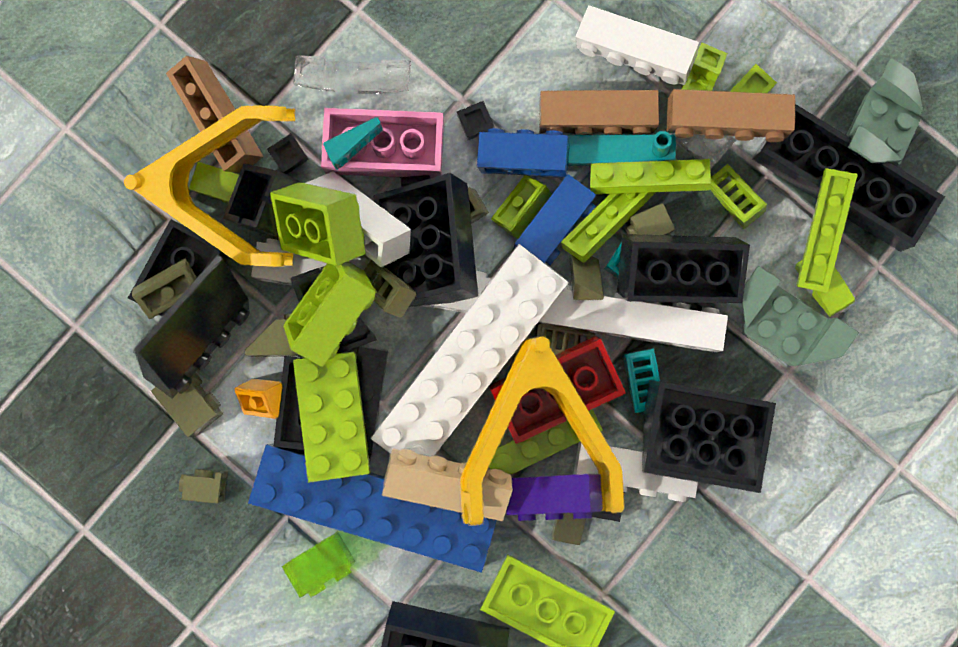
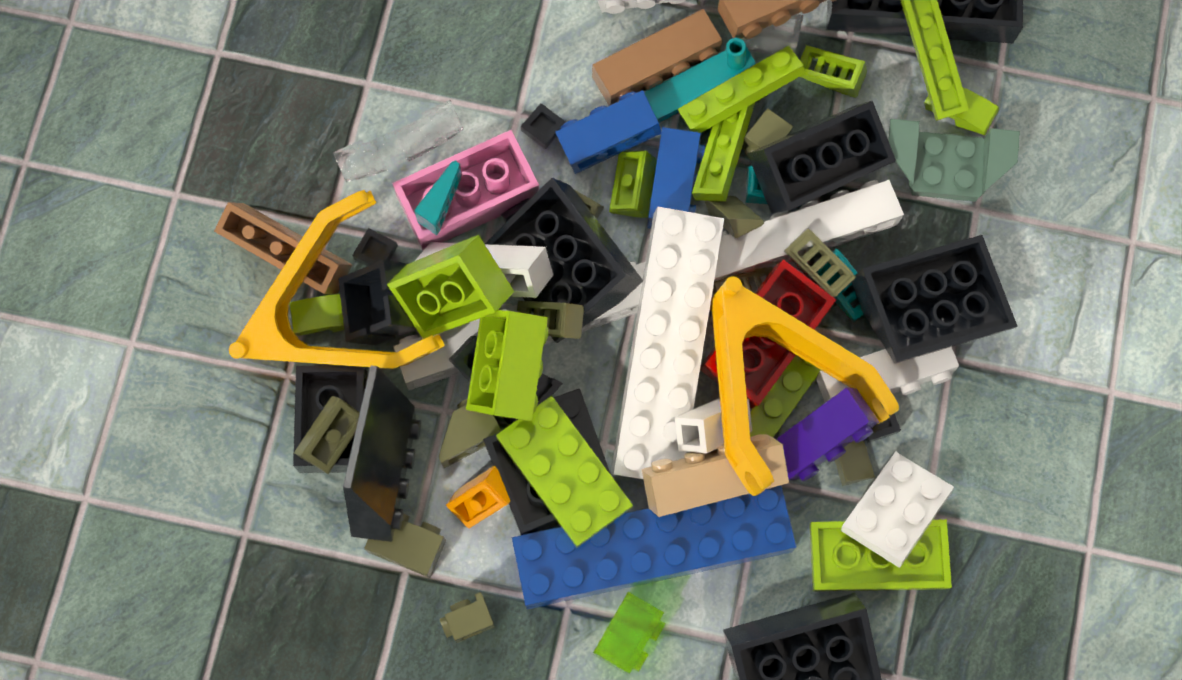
camera: 30 degrees left, 10 degrees down
(456, 440) = (702, 428): none -> white brick
(580, 583) = (897, 509): none -> white plate
(636, 380) = (837, 265): none -> olive slope

